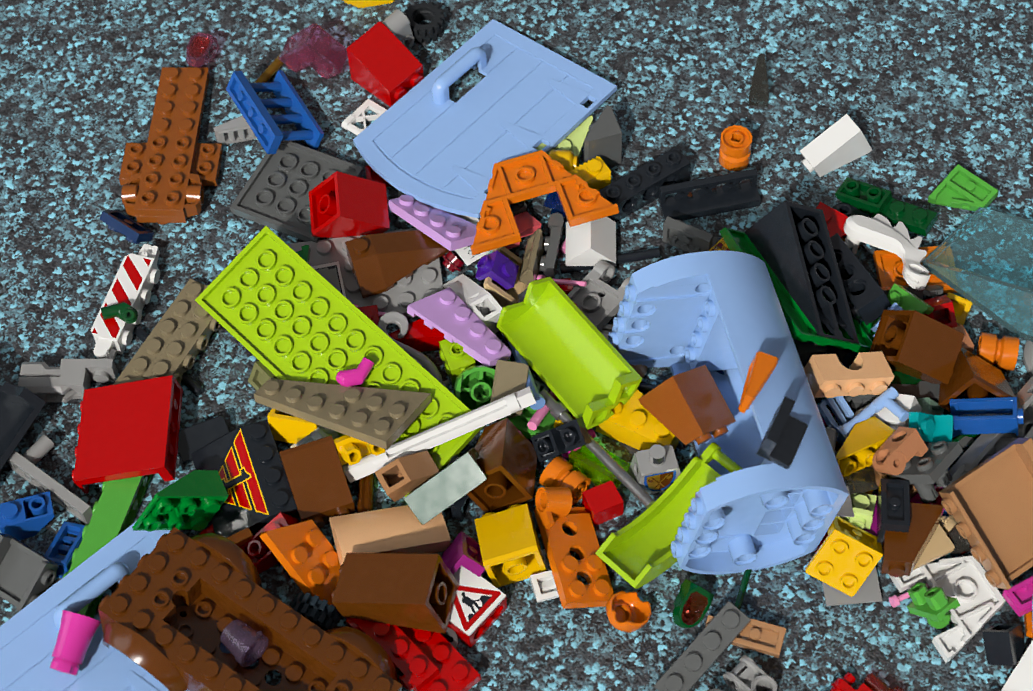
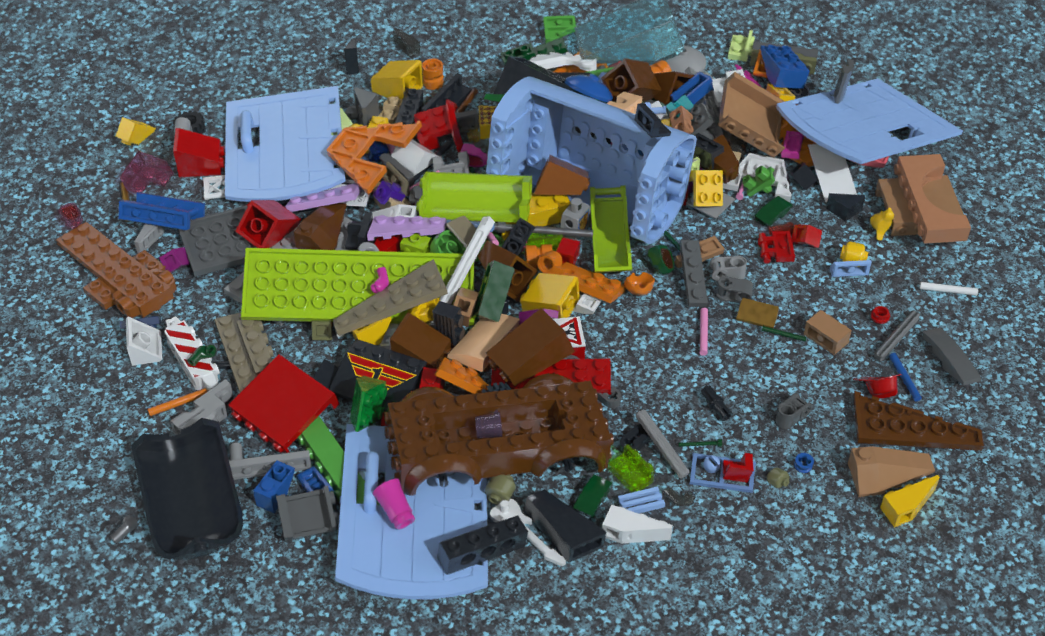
camera: 50 degrees left, 10 degrees down
(61, 344) = (176, 402): none -> orange bar
(101, 250) = (143, 342): none -> white slope
(230, 178) = (175, 259): none -> magenta panel
(362, 482) = (449, 321): none -> black brick
(418, 290) = (358, 232): none -> black panel
(453, 261) = (353, 212): dark red plate -> none
(644, 154) = (391, 109): none -> tan slope
(650, 220) = (437, 123): none -> red piece
(670, 59) = (351, 58): none -> black slope
(689, 127) = (396, 77): none -> yellow slope
(730, 215) = (467, 101): none -> reddish brown piece
(757, 376) = (613, 109): orange slope -> none
(835, 147) = (480, 43): white slope -> none
(842, 316) = (589, 86): none -> blue dish
(906, 656) = (772, 211): none -> dark green slope

